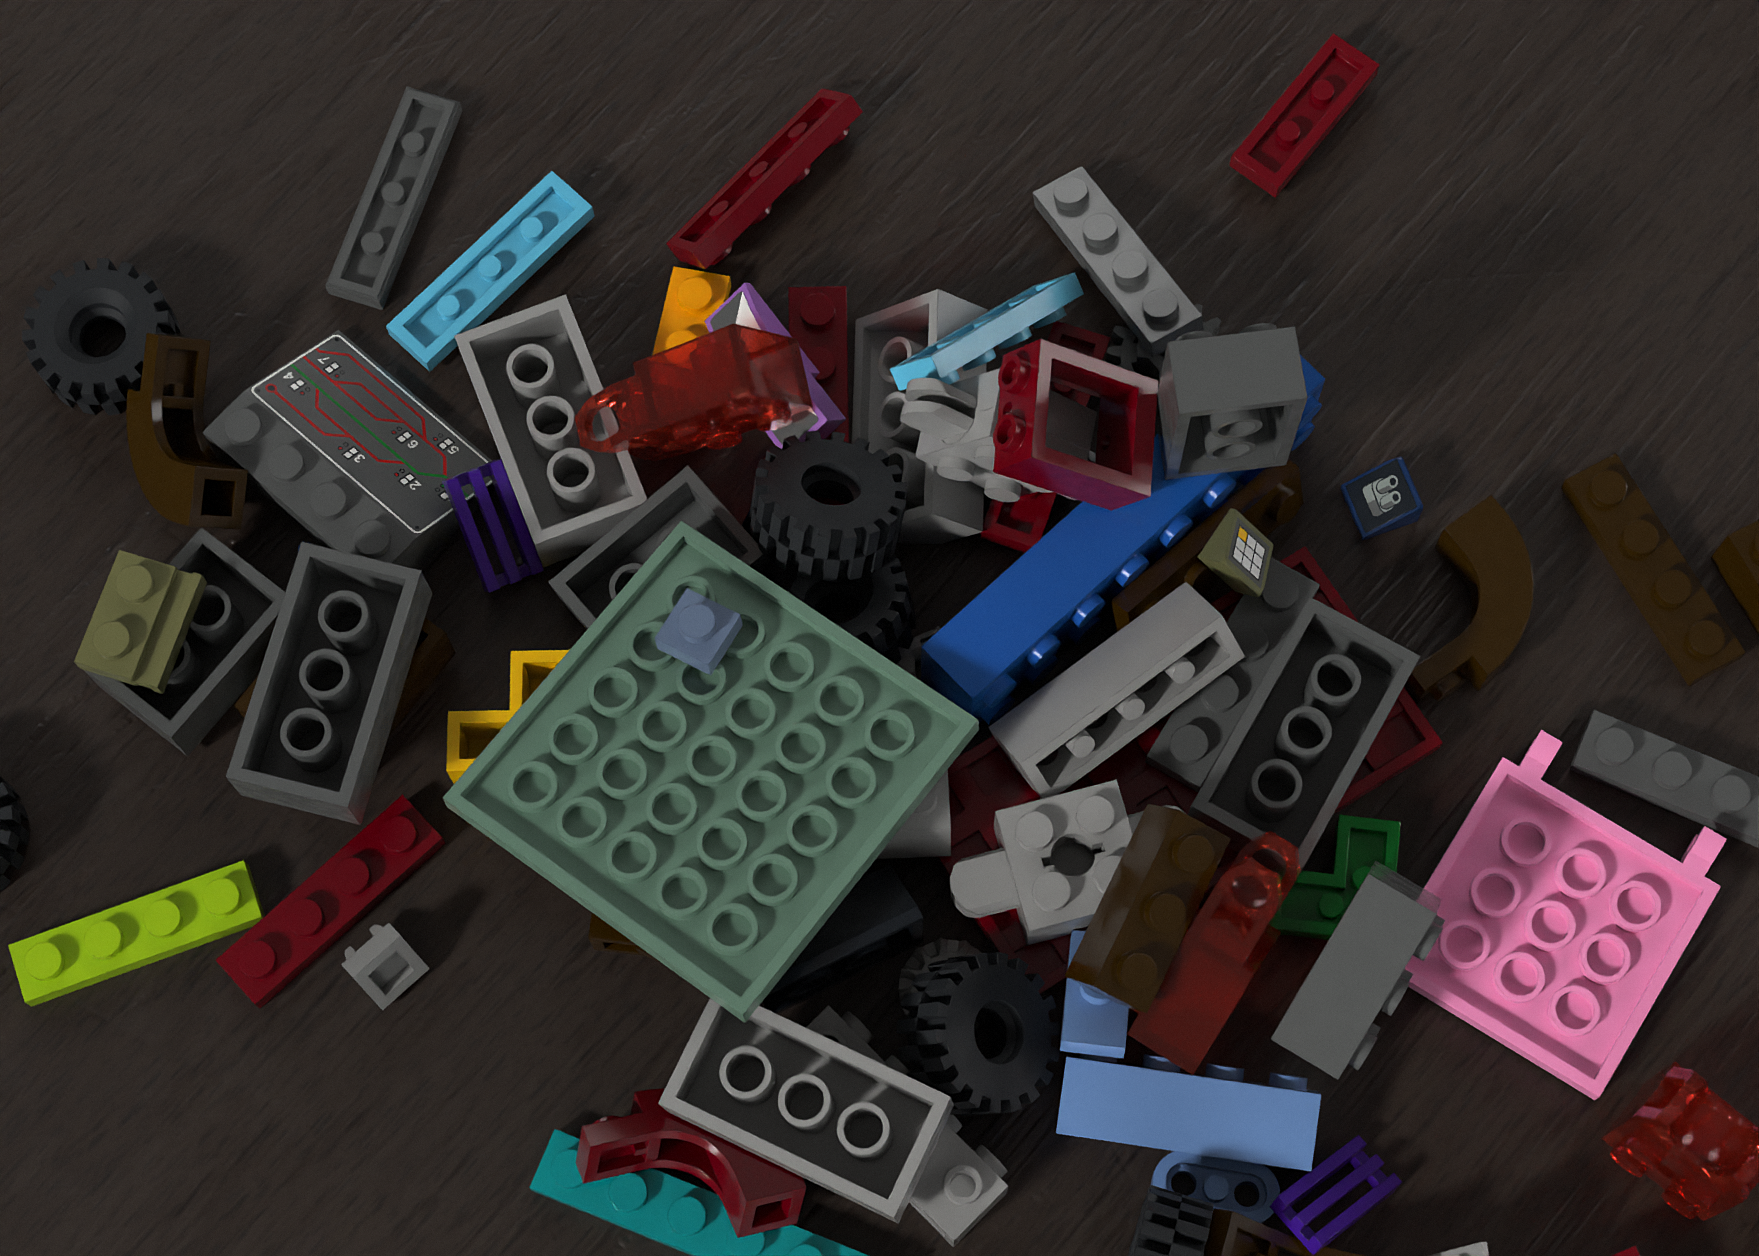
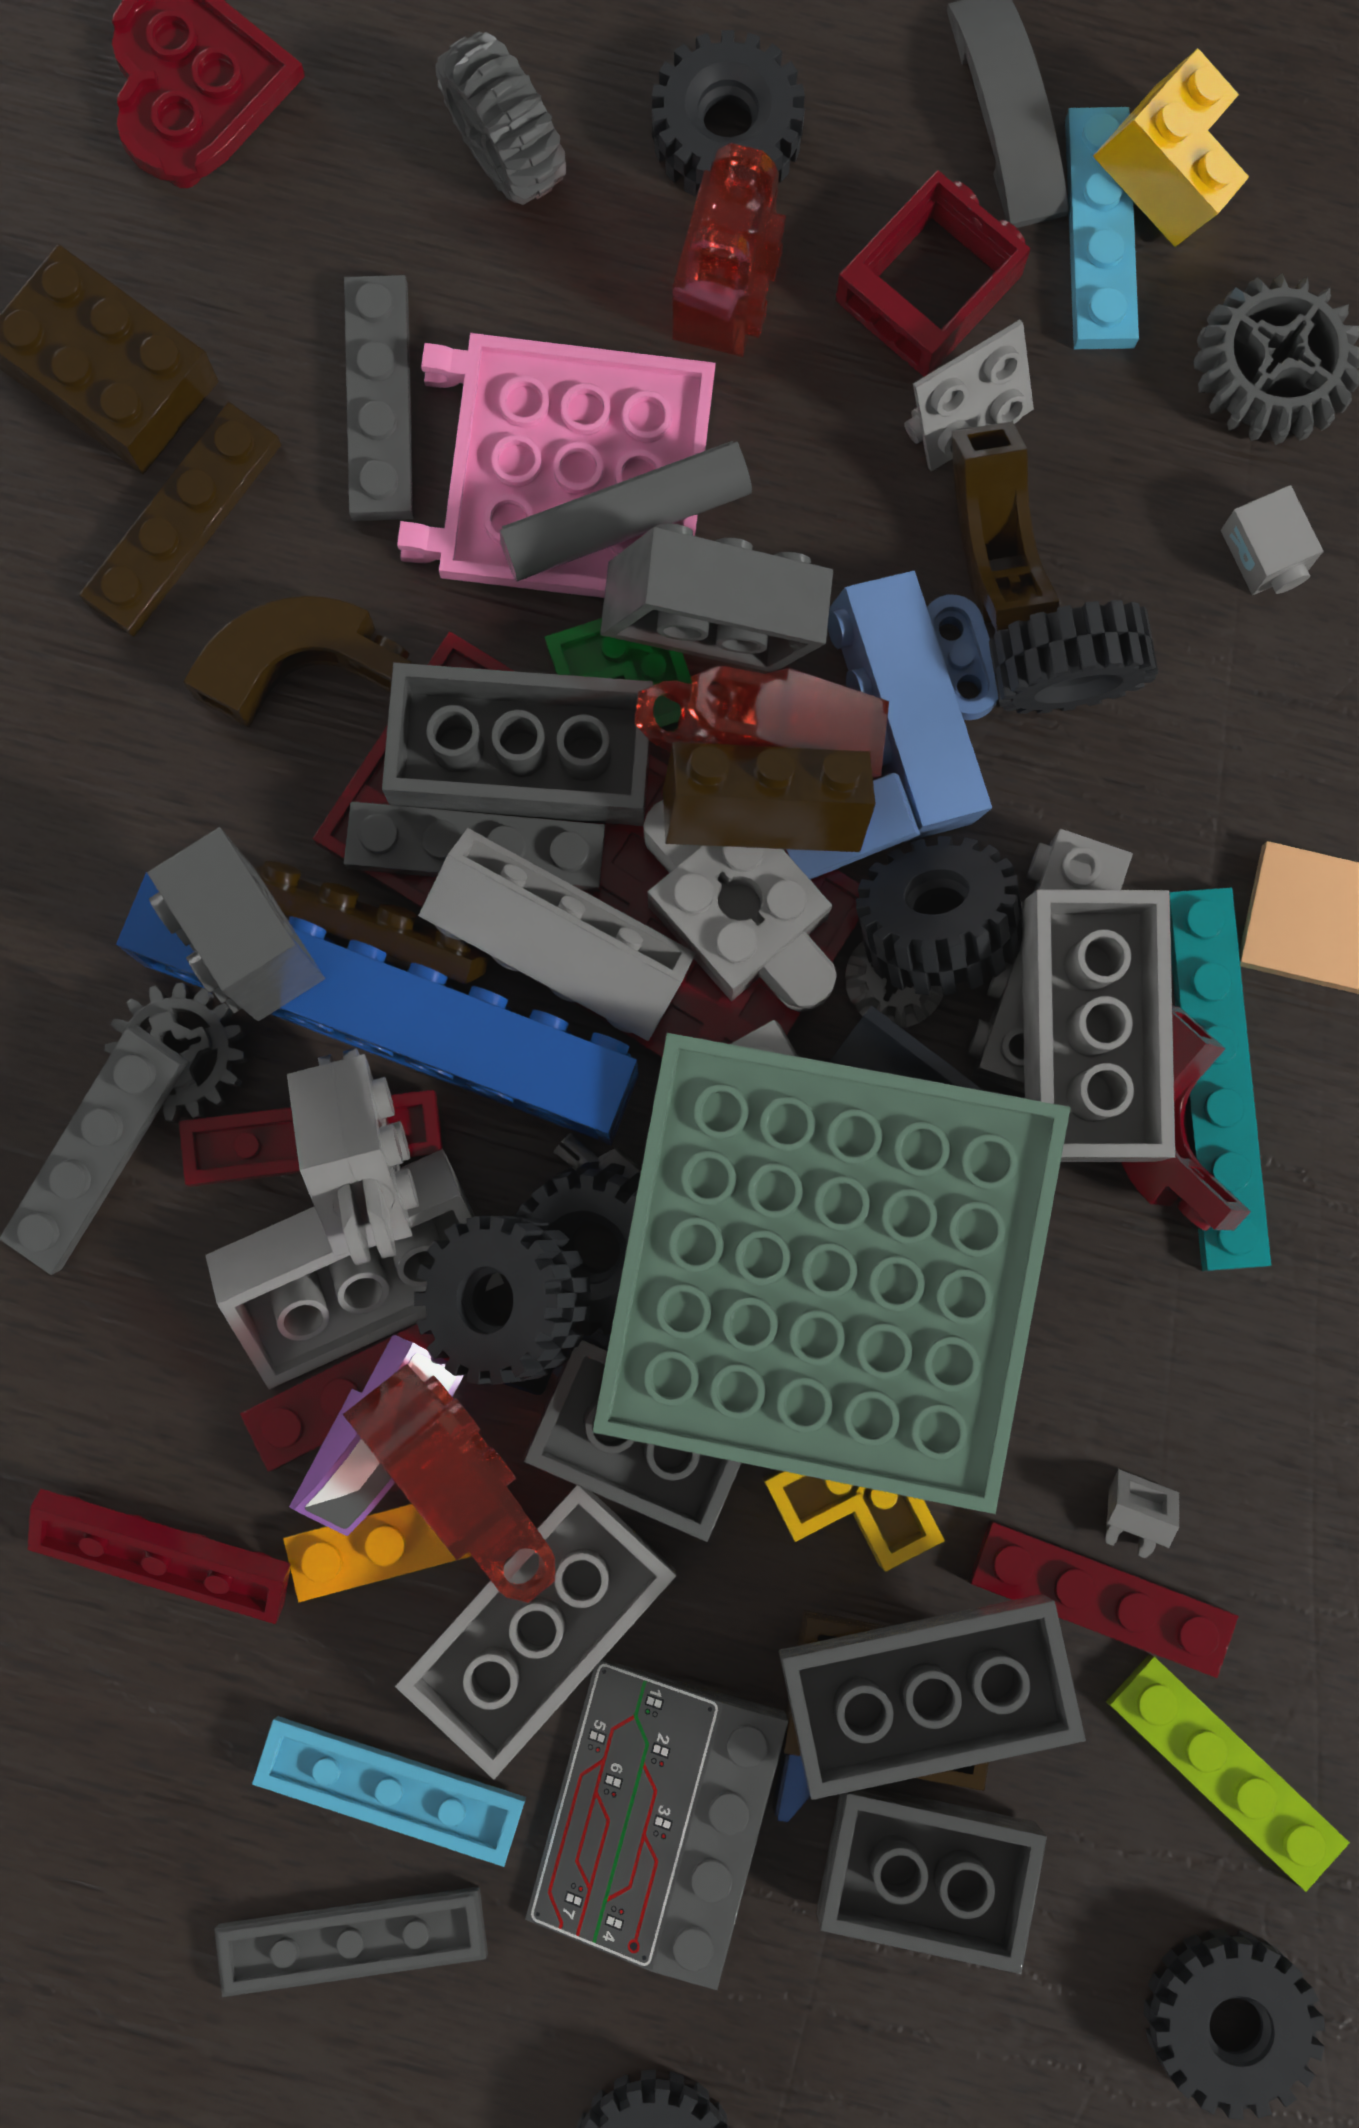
camera: 120 degrees left, 10 degrees up
(140, 621) = (951, 1934): olive plate -> none
(168, 440) = (734, 2029): dark brown arch -> none
(512, 572) = (696, 1598): dark purple tile -> none
(698, 631) = (706, 1349): sand blue plate -> none
(1001, 326) = (242, 1232): medium azure plate -> none
(1124, 426) = (307, 1031): dark red window -> none
(1238, 554) = (360, 884): slope -> none
(1365, 1169) = (876, 534): dark purple tile -> none
(1383, 499) = (226, 791): slope -> none
(1481, 937) = (625, 510): none -> dark grey brick

